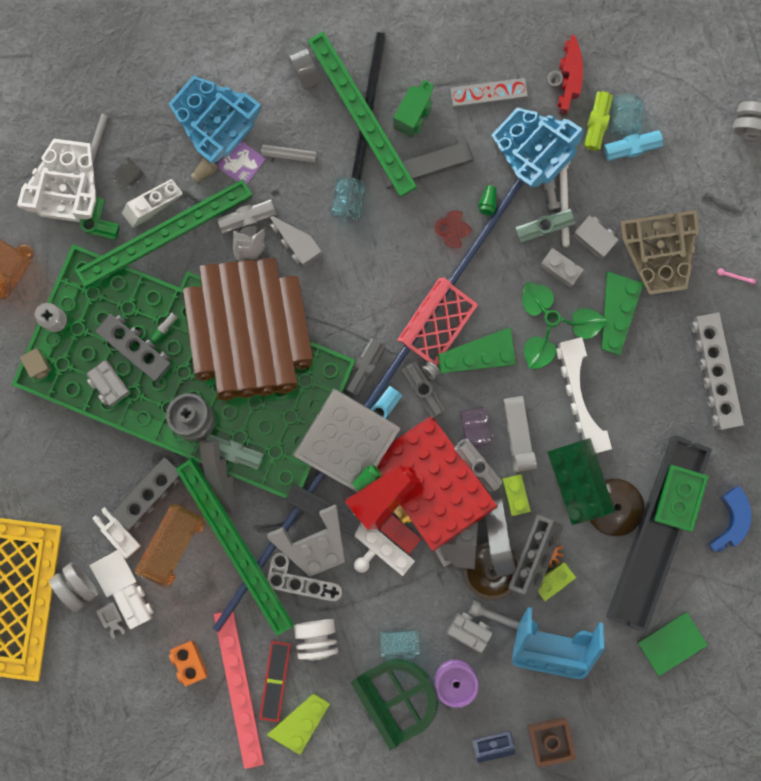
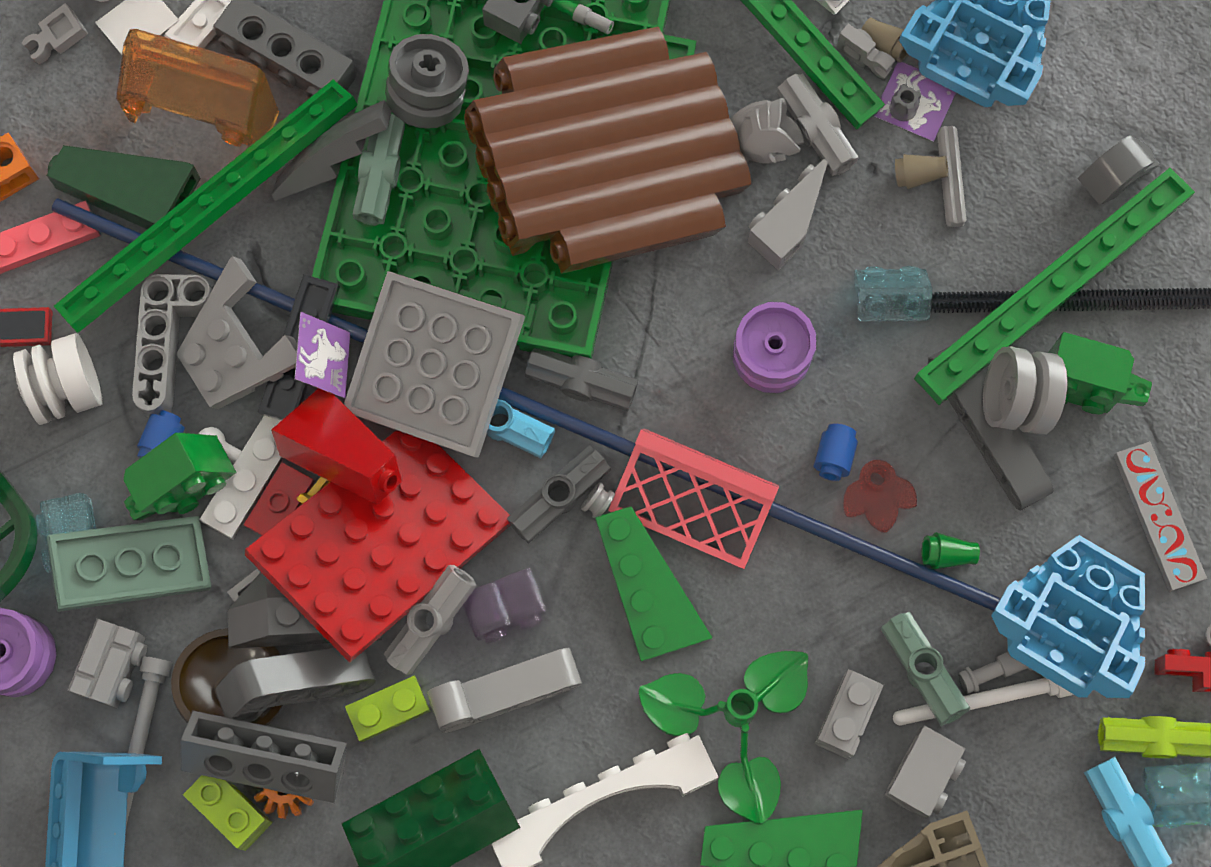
camera: 80 degrees right, 10 degrees down
(133, 605) = (82, 63): white brick -> none
(205, 185) = (861, 49): none -> light grey plate
(210, 590) = (123, 184): none -> dark green slope
(243, 173) = (901, 110): none -> dark grey hose
(283, 170) = (919, 169): none -> dark tan cone
(332, 497) = (322, 355): none -> medium lavender sticker
(355, 590) = (158, 430): none -> blue brick
(368, 476) = (371, 412): green cone -> none
(372, 275) = (774, 347): none -> medium lavender wheel
(382, 582) = (176, 475): none -> green hinge
(420, 144) = (1024, 390): none -> light grey wheel
(421, 614) = (128, 563): none -> sand green tile
(427, 245) = (836, 452): none -> blue brick

